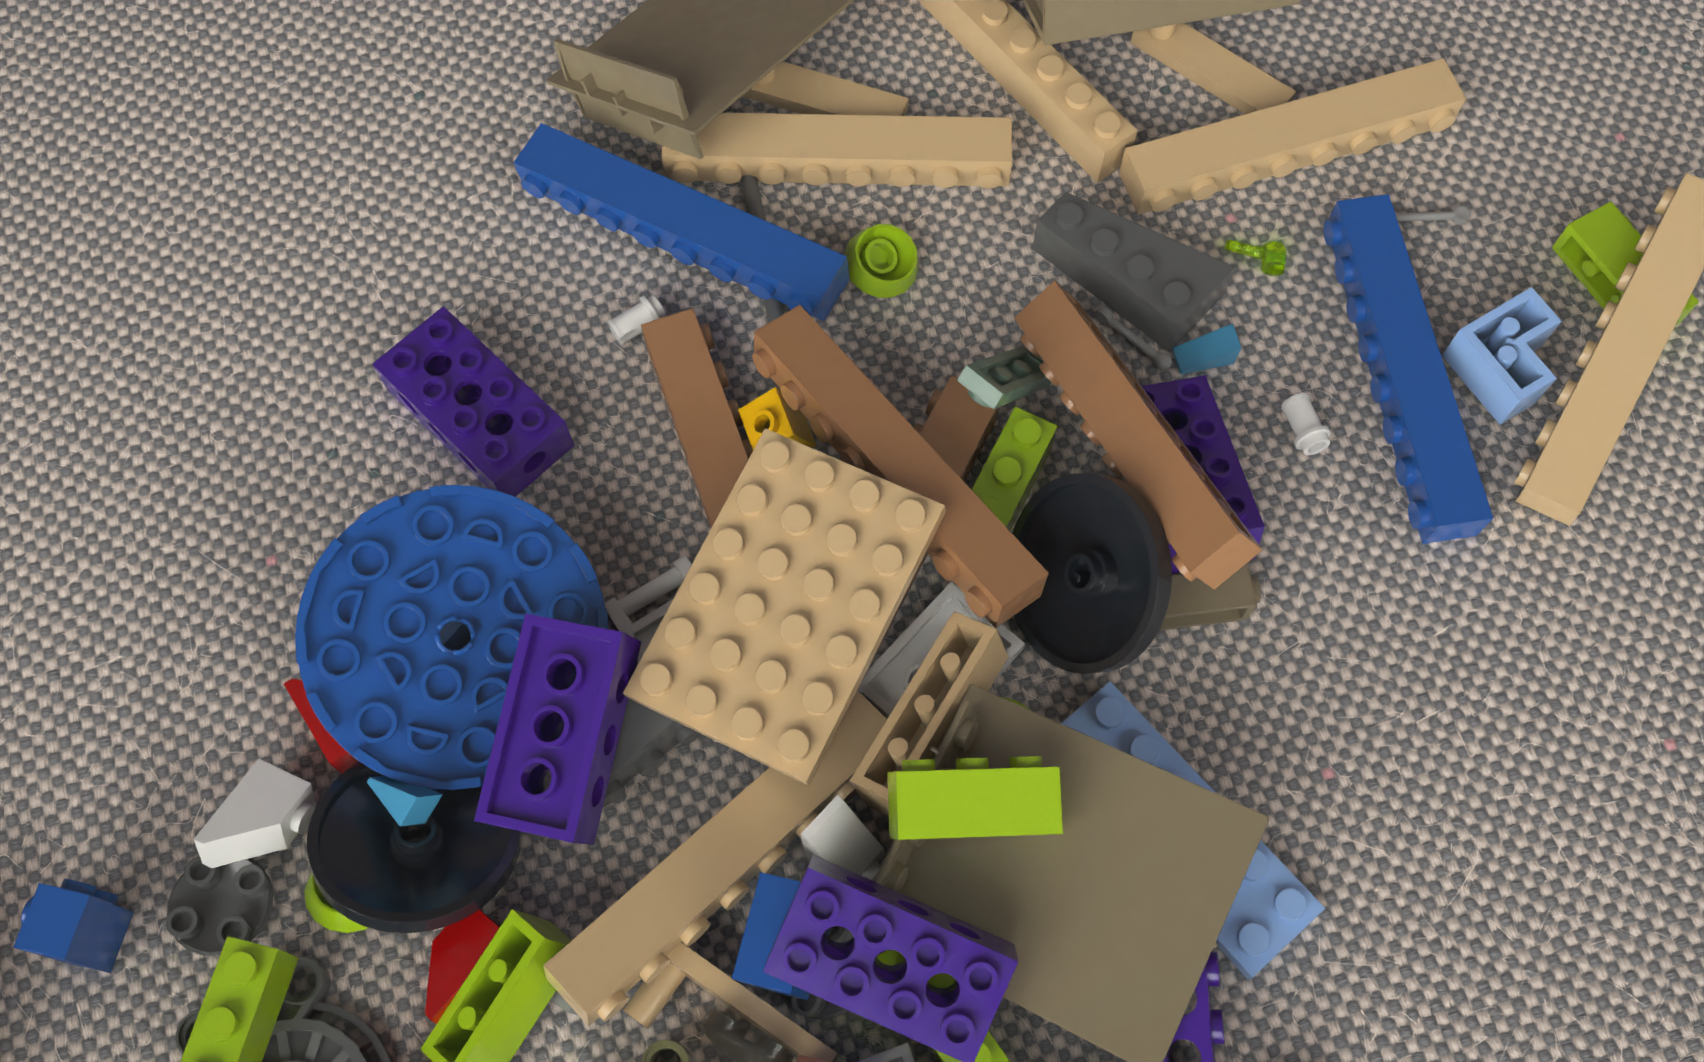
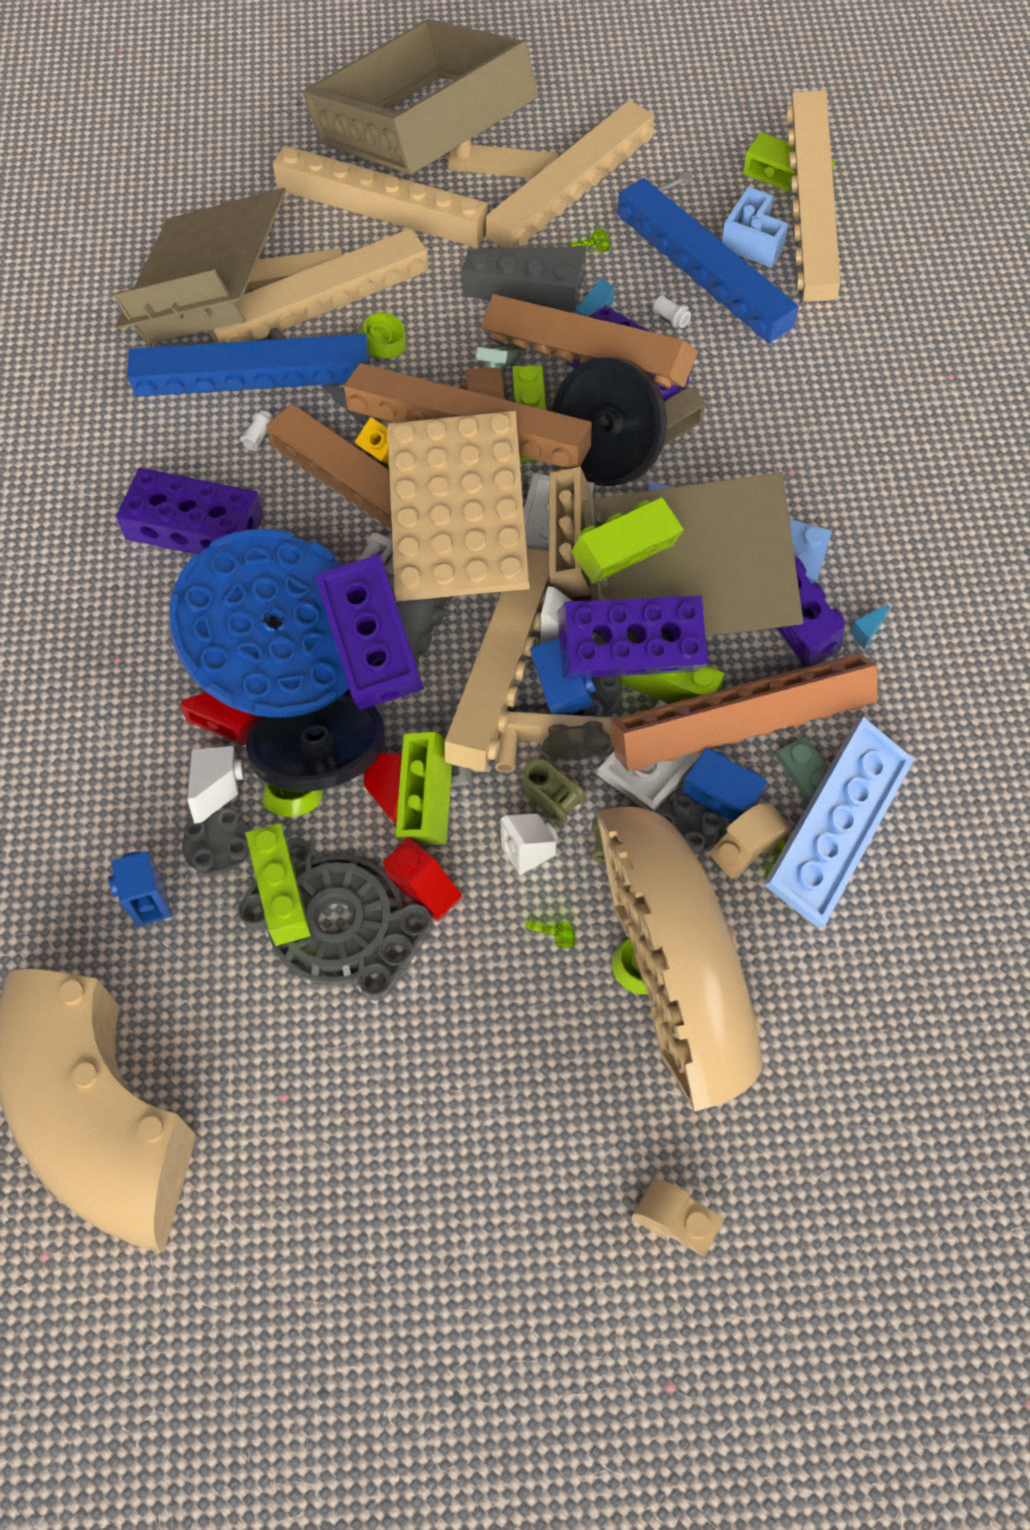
camera: 30 degrees left, 5 degrees down
(404, 801) = (303, 719): dark azure piece -> none

